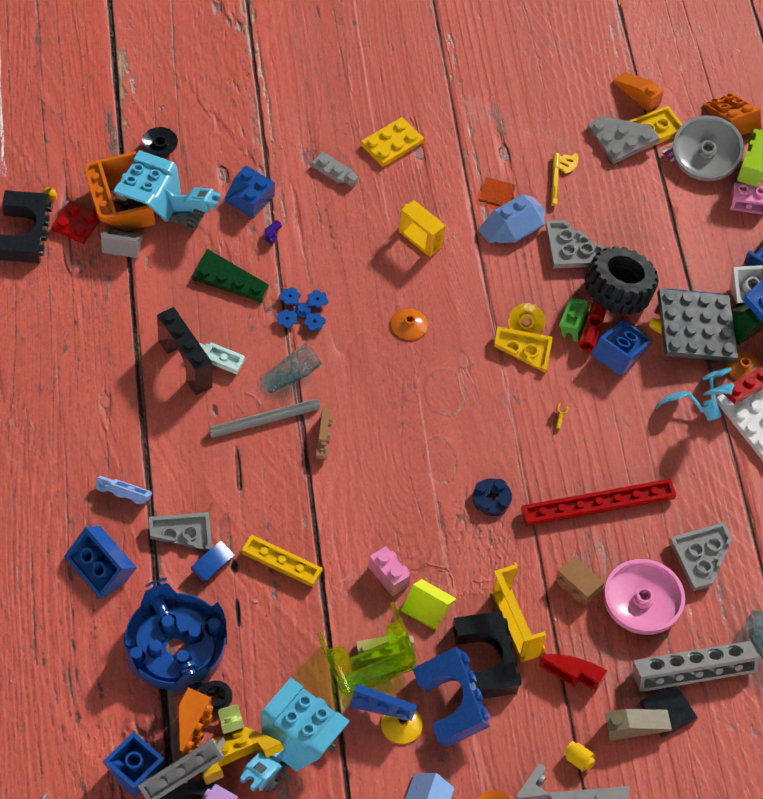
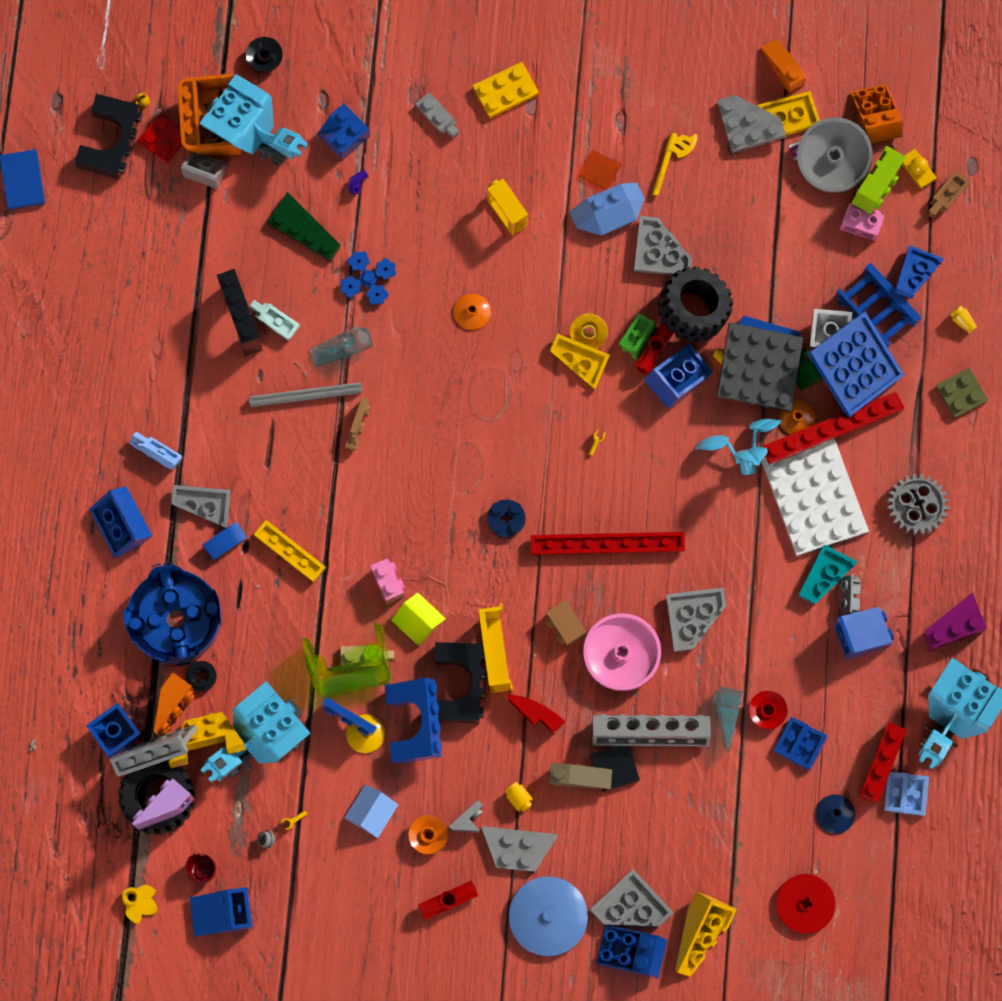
camera: 15 degrees right, 20 degrees up
(230, 718) = (210, 703): yellowish green bracket -> none

